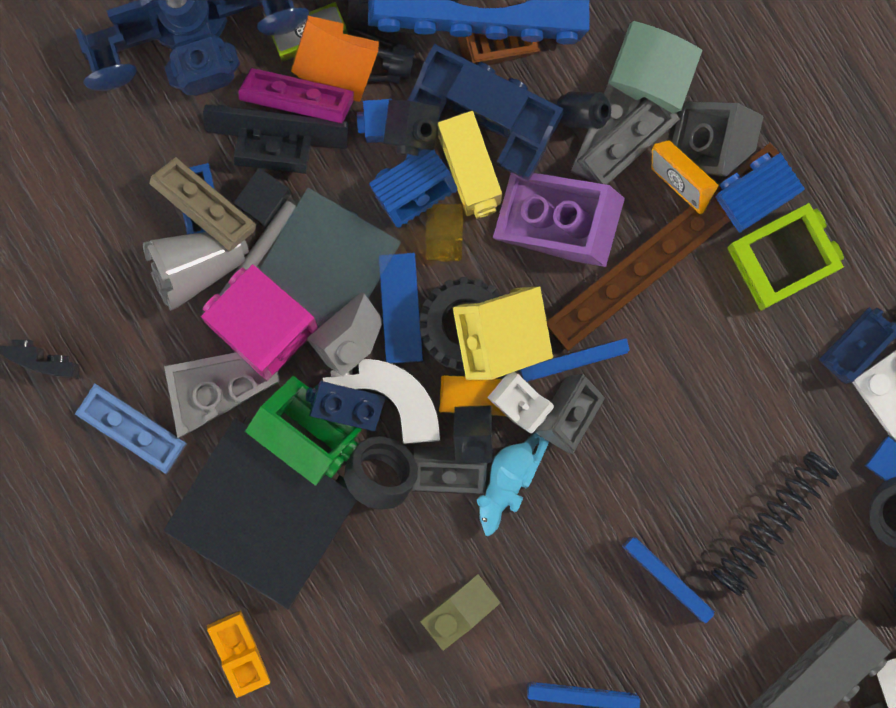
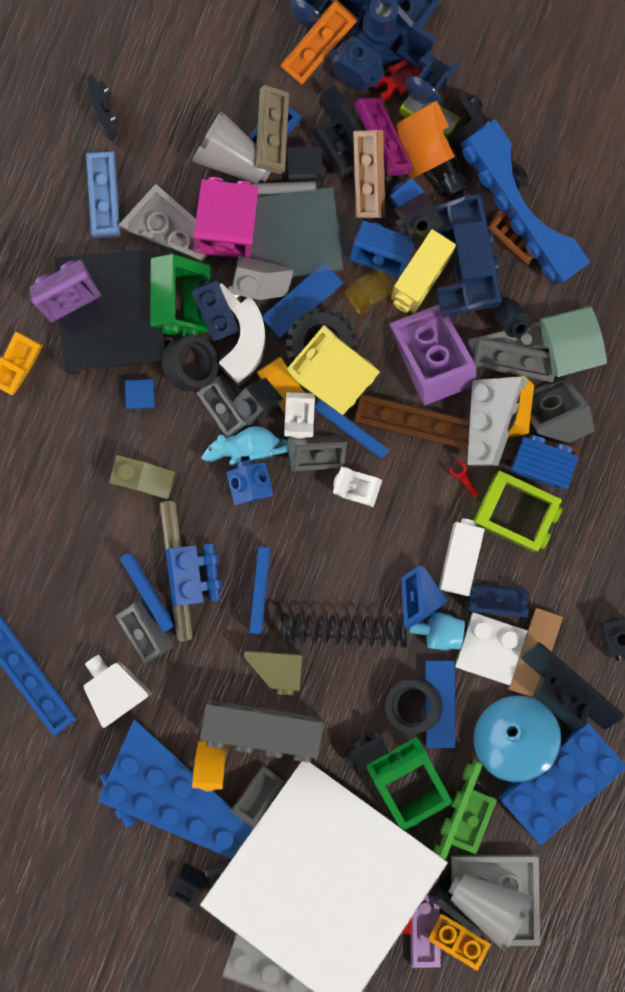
camera: 50 degrees right, 0 degrees up
(149, 86) = (319, 42): none -> orange tile
(209, 546) = (64, 291): none -> medium lavender slope
(245, 31) = (397, 79): none -> red plate
(325, 140) = (369, 174): none -> medium nougat tile
(370, 549) = (140, 394): none -> blue tile
(550, 506) = (249, 482): none -> blue brick
(581, 650) = (172, 540): none -> dark tan axle
(596, 645) = (185, 575): none -> blue plate
(637, 399) = (356, 486): none -> white bracket
(670, 208) = (491, 411): none -> light grey wing
(711, 284) = (464, 479): none -> red hand
(762, 622) = (278, 670): none -> olive slope
(790, 349) = (461, 557): none -> white brick
(799, 421) = (420, 596): none -> blue slope
(849, 425) = (442, 631): none -> medium azure piece

